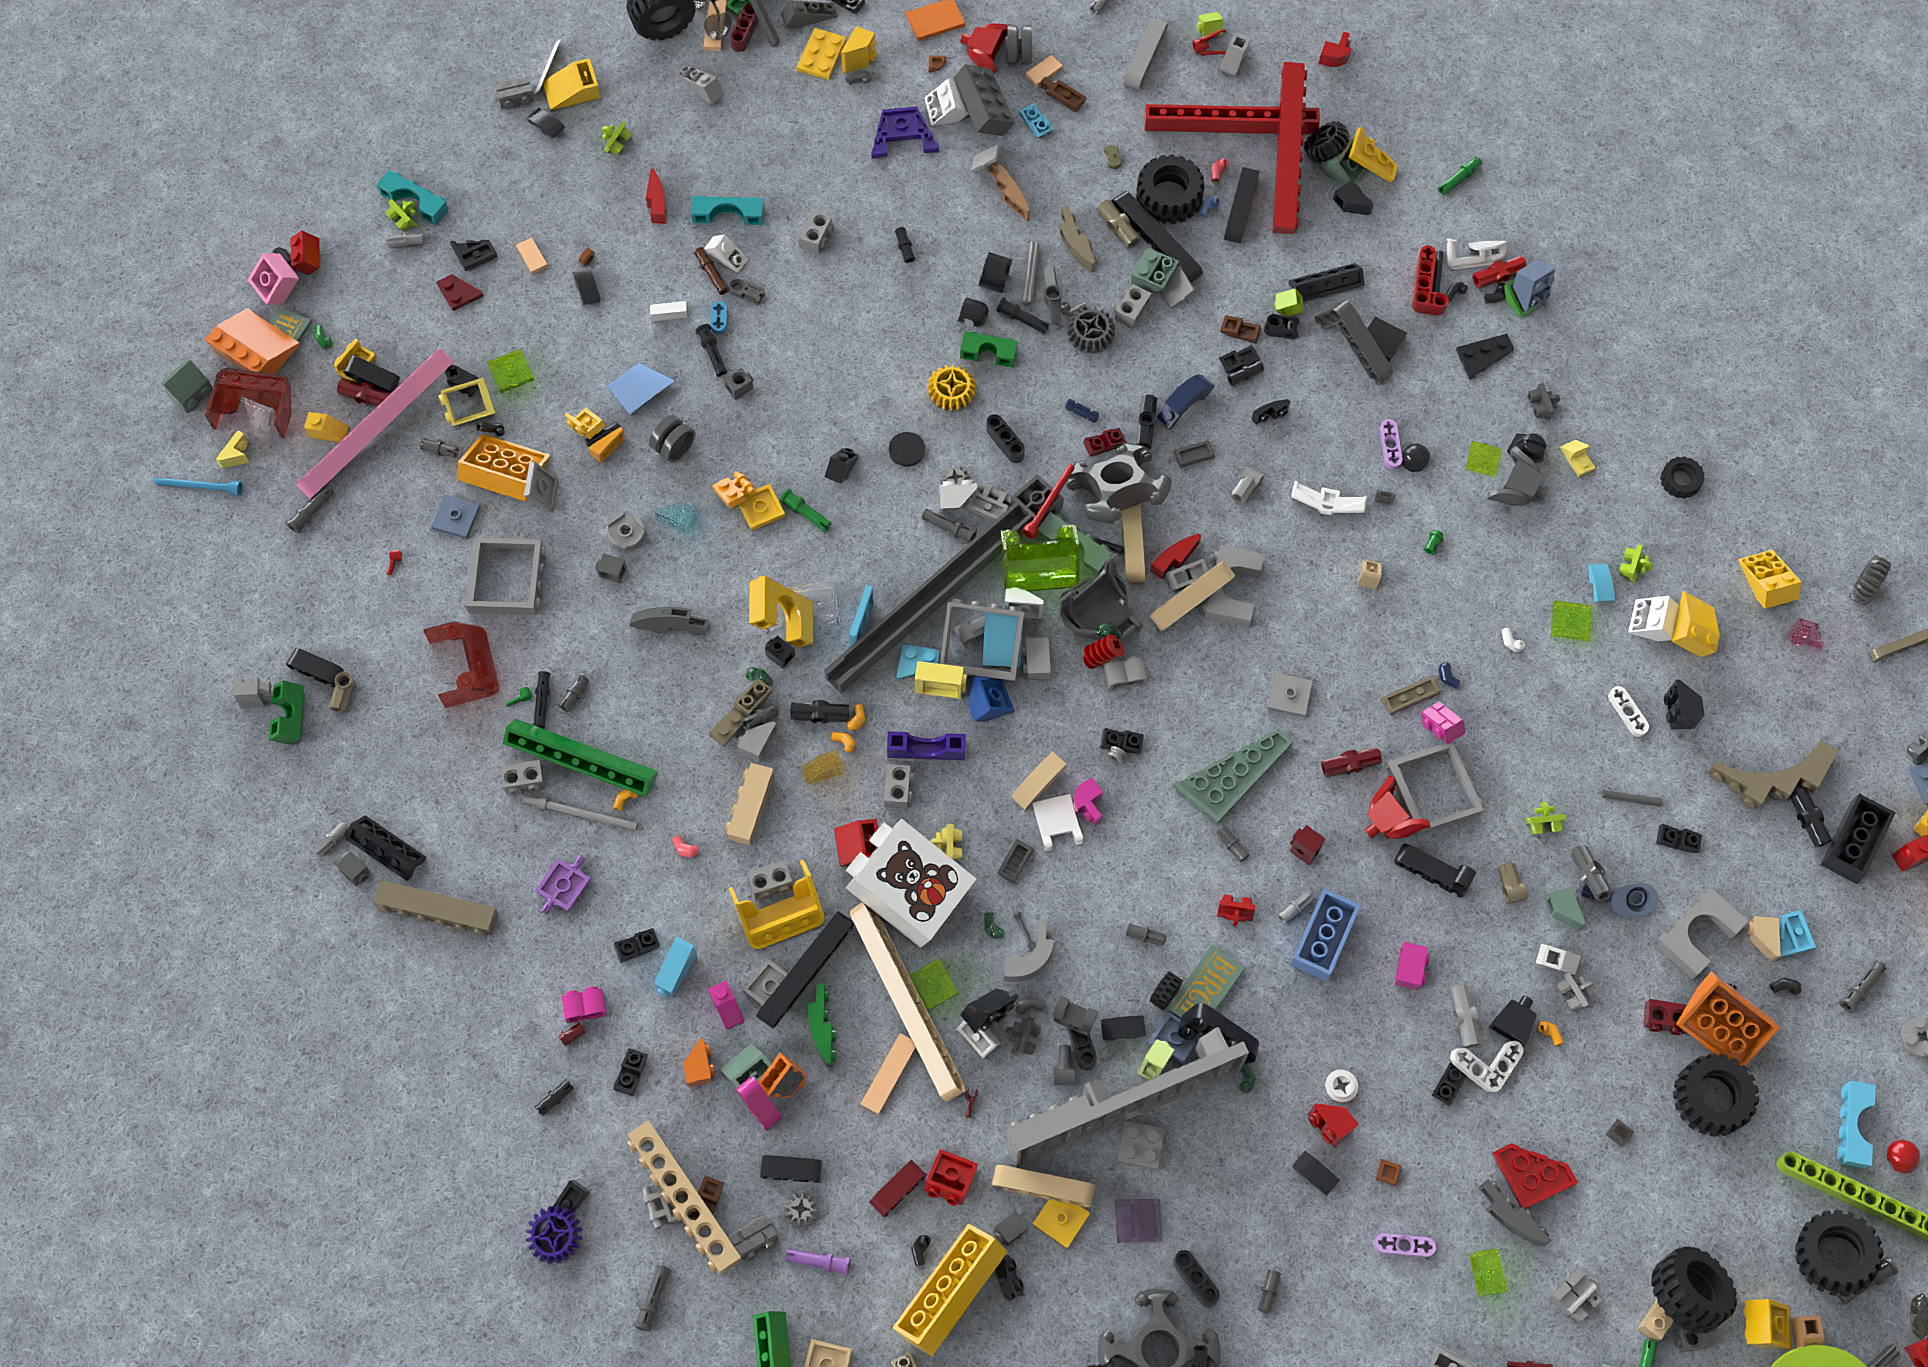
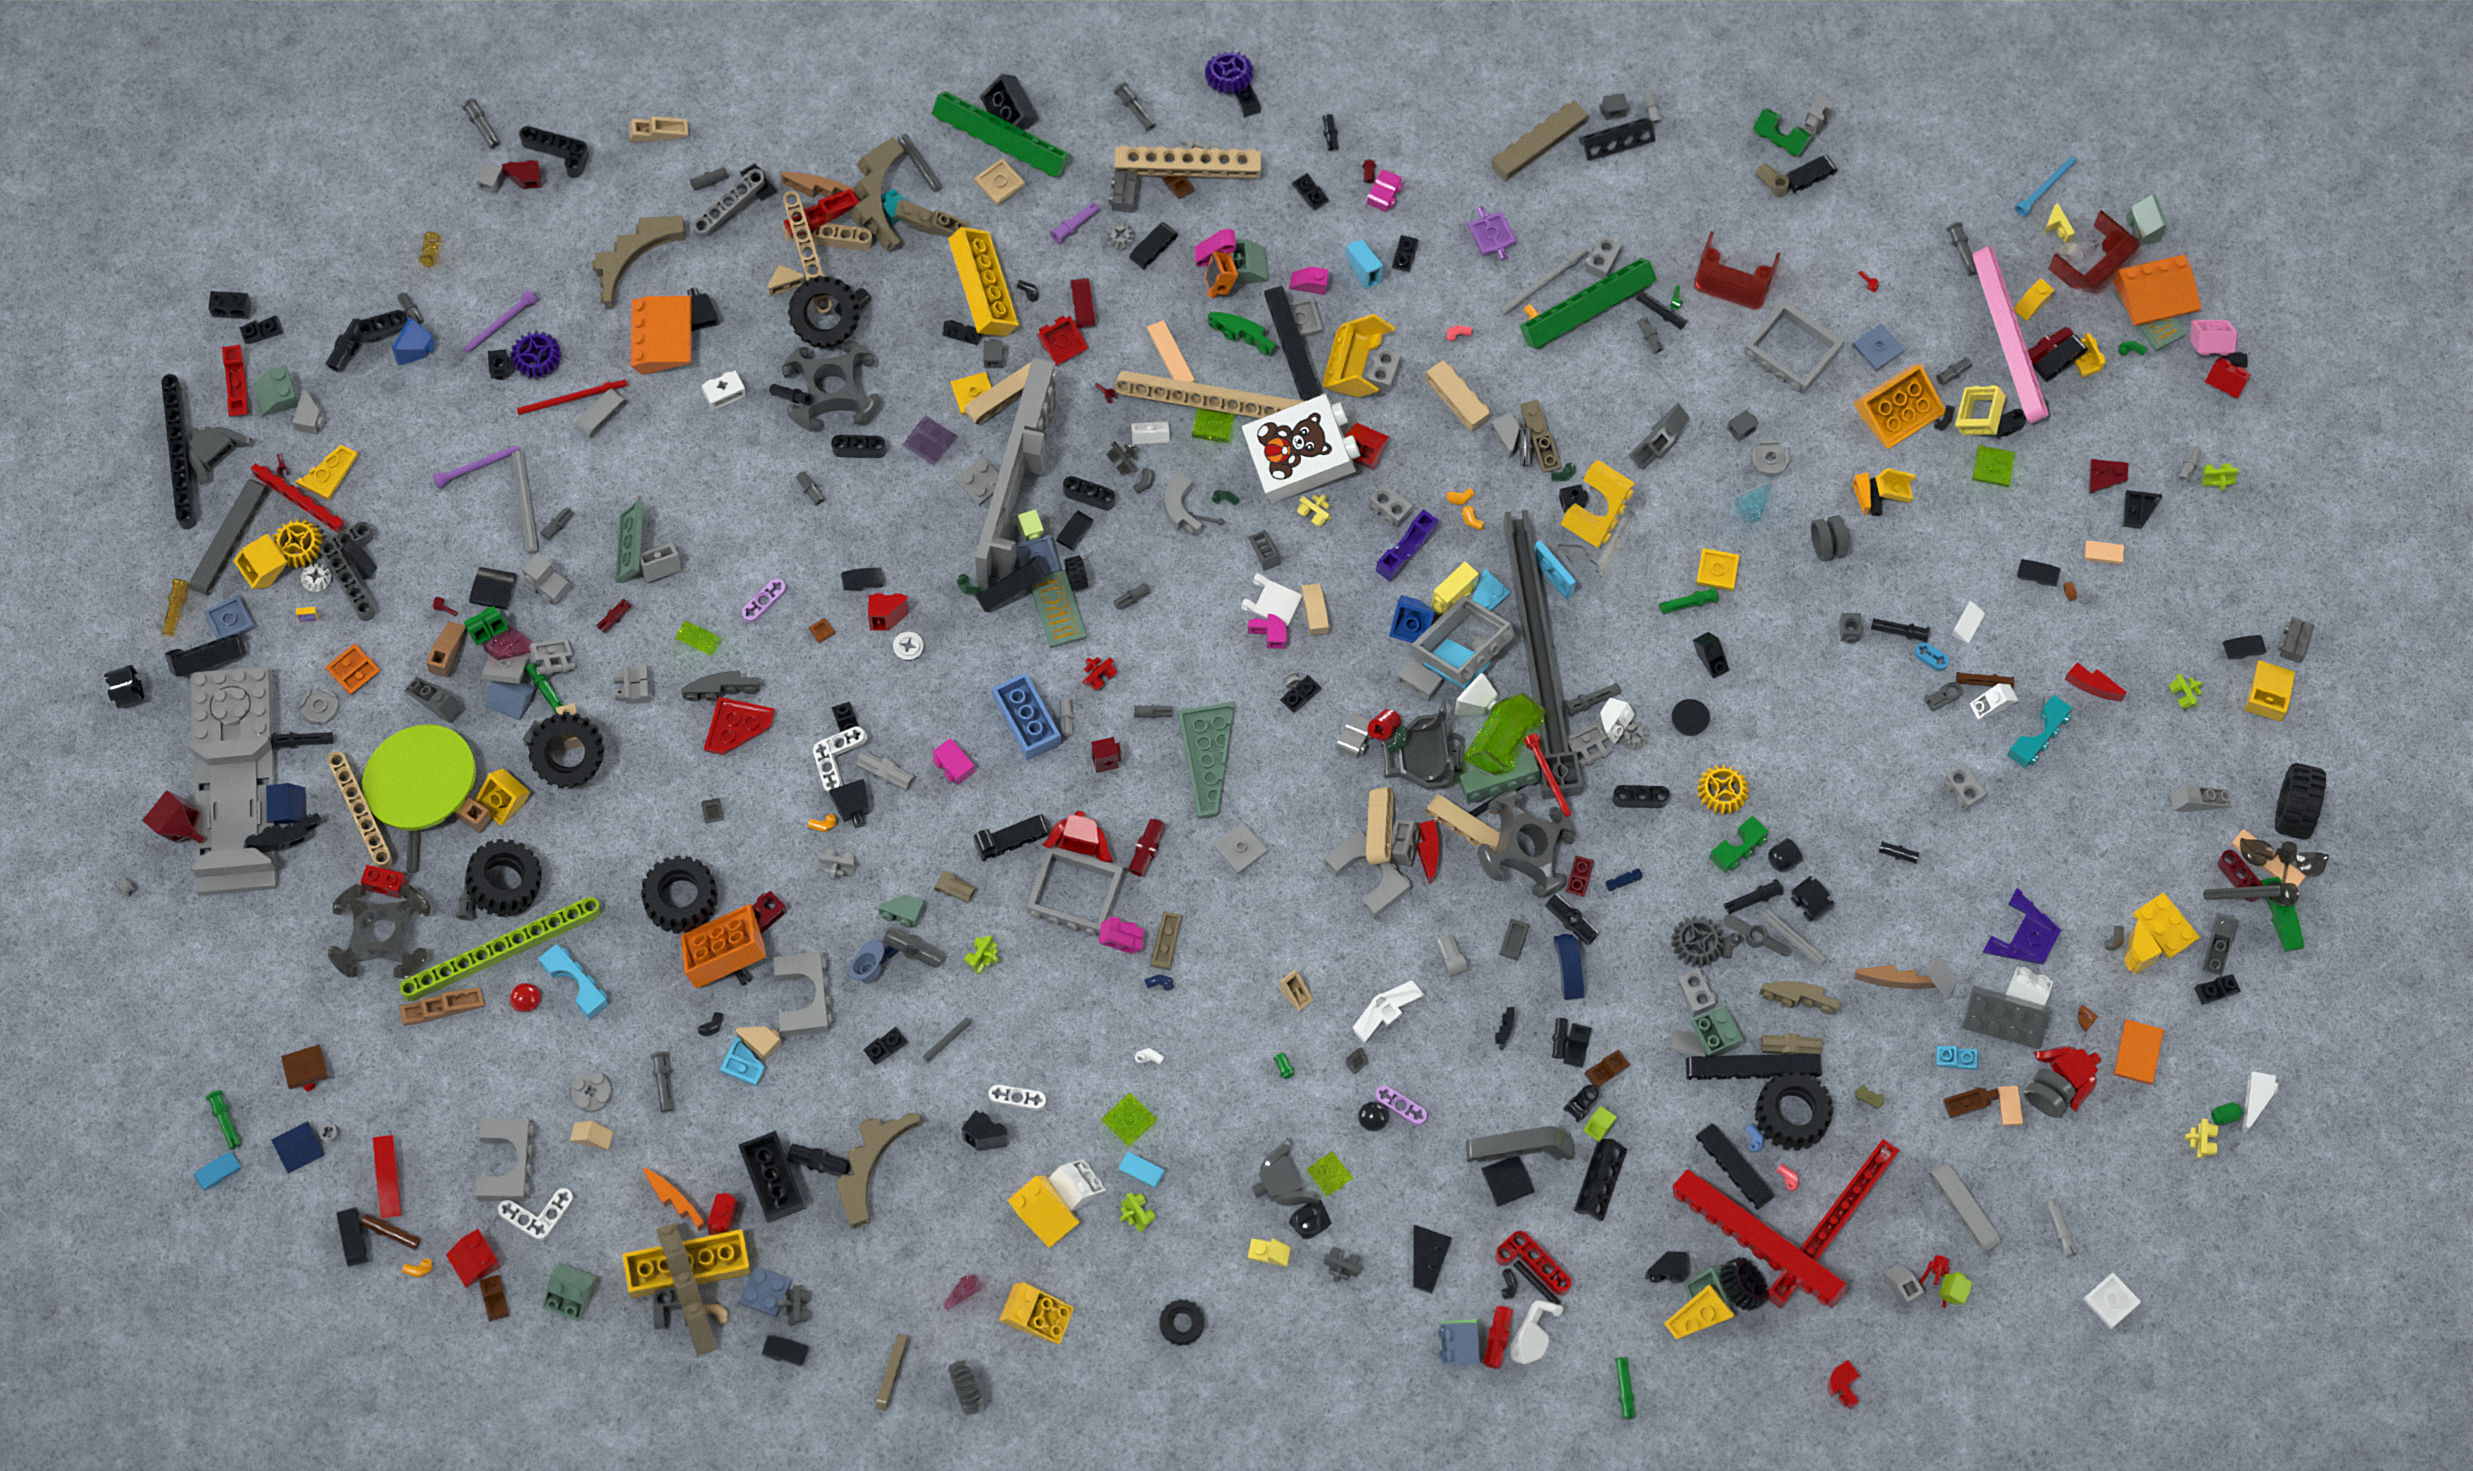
camera: 125 degrees right, 0 degrees up
(395, 187) = (2212, 502): teal arch -> none
(540, 486) = (1856, 416): light grey plate -> none
(547, 66) = (2310, 686): white sticker -> none
(638, 386) = (1903, 549): light blue slope -> none
(697, 1065) = (1277, 233): orange slope -> none
(729, 492) = (1747, 552): light orange plate -> none
(819, 711) = (1497, 493): black piece -> none
(823, 767) = (1447, 466): clear yellow slope -> none
(988, 1009) = (1161, 441): black slope -> none
(1064, 1071) = (1075, 467): dark grey pin -> none
(1074, 1016) = (1107, 488): dark grey piece -> none
(1497, 296) = (1477, 1314): black arm -> none
(1558, 959) = (869, 868): white slope -> none

